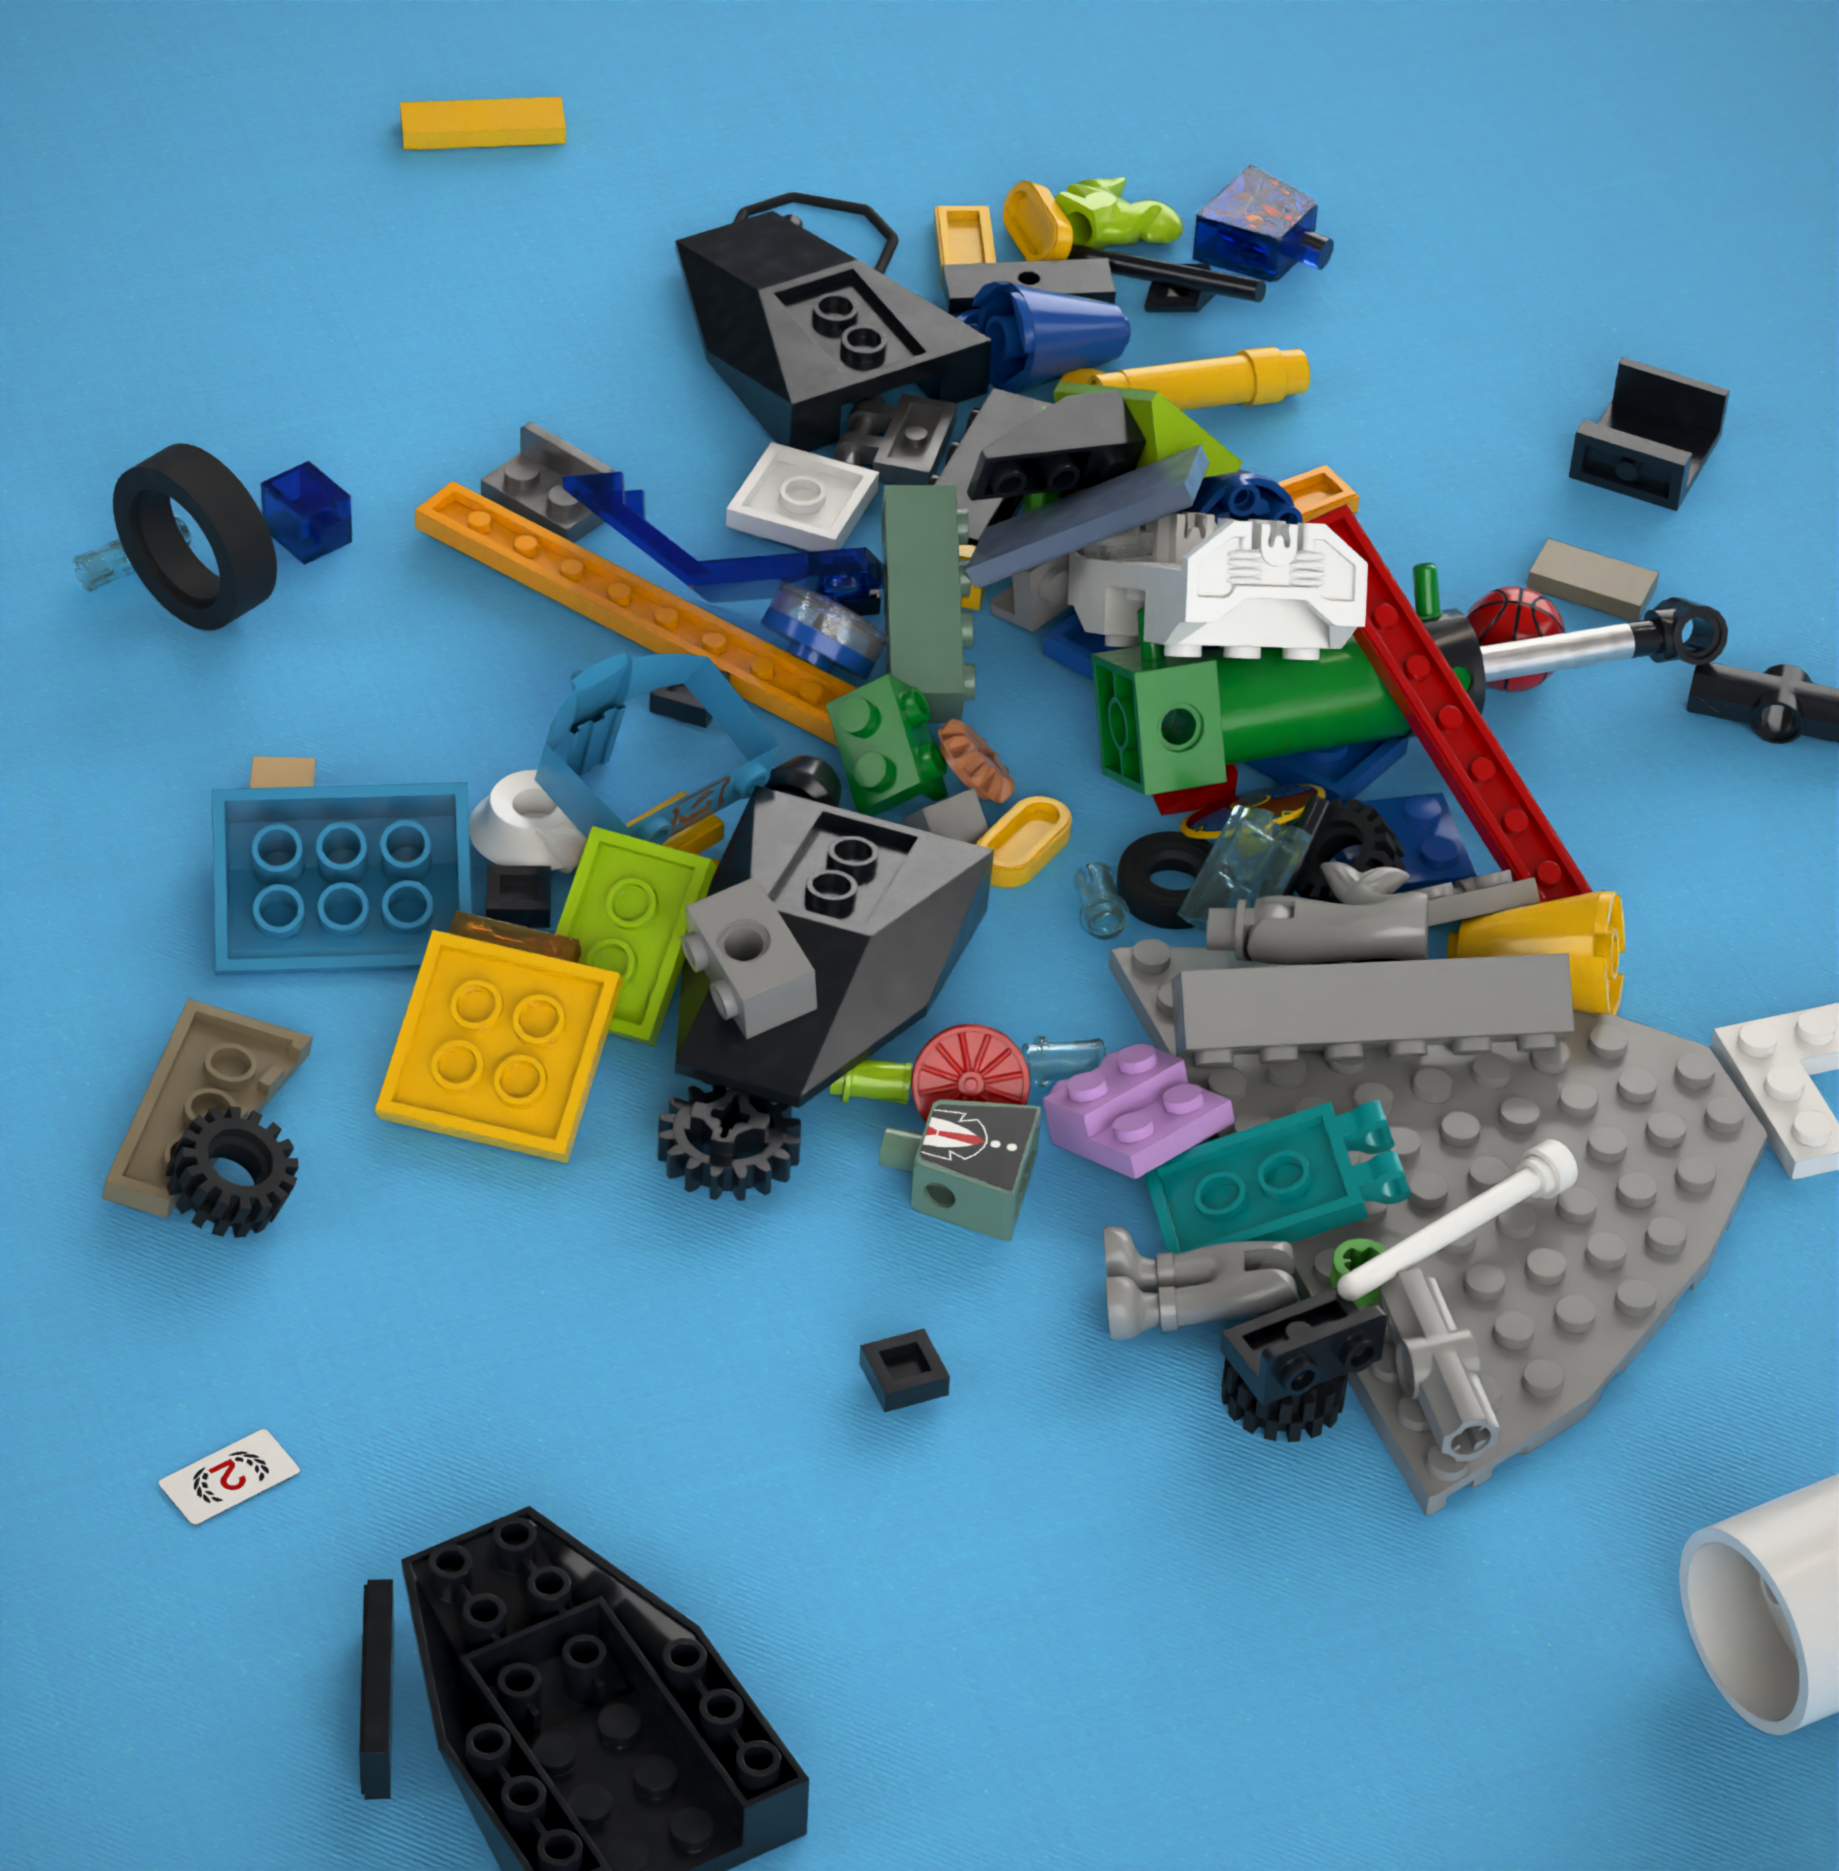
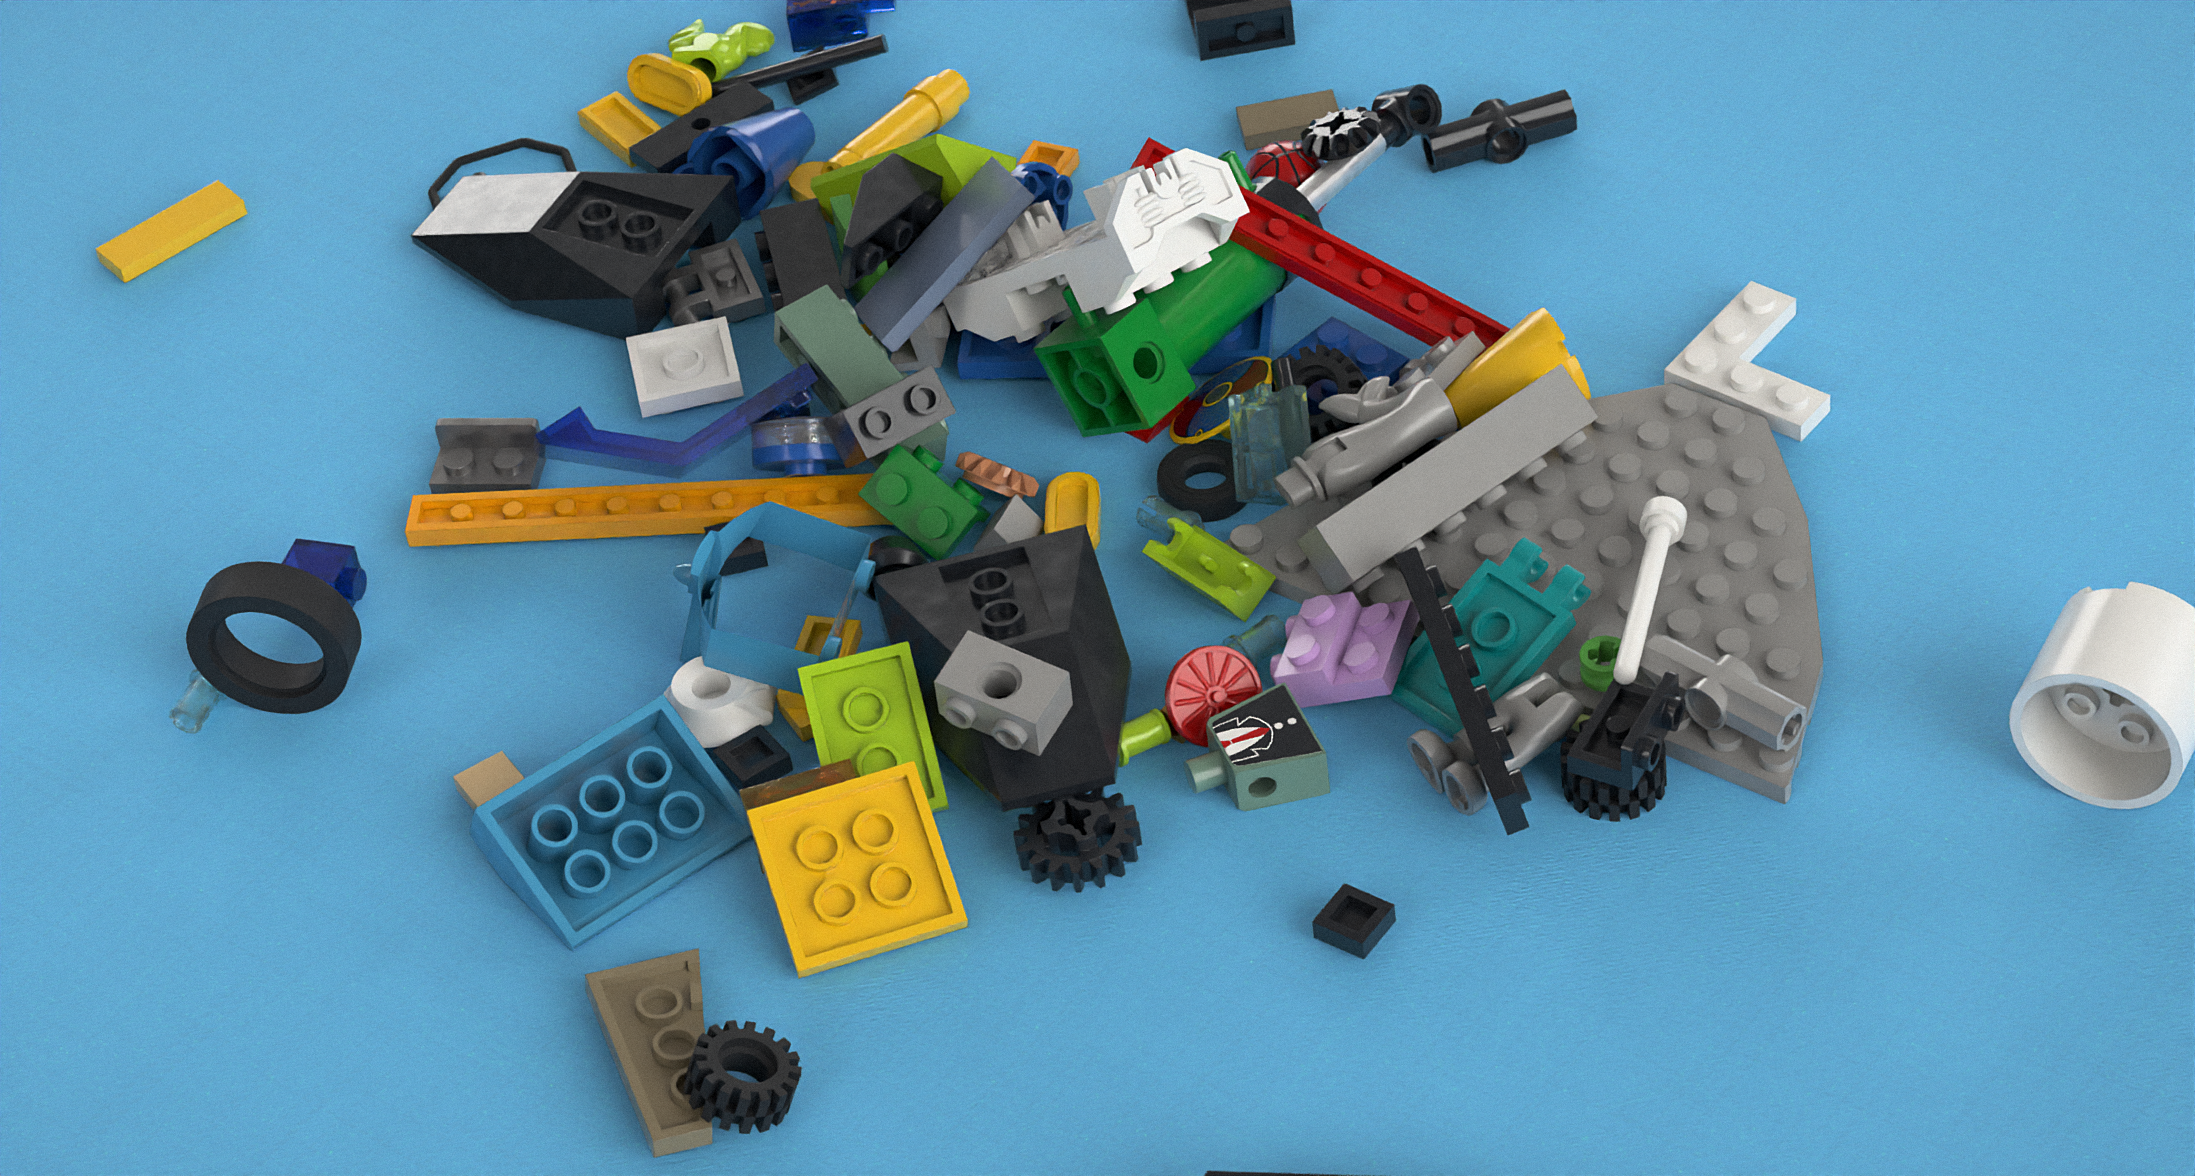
camera: 25 degrees left, 0 degrees up
(901, 642) = (889, 416): none -> brick
(1088, 963) = (1211, 568): none -> lime hinge
(1182, 1219) = (1472, 703): none -> black plate
(1587, 613) = (1340, 134): none -> black gear

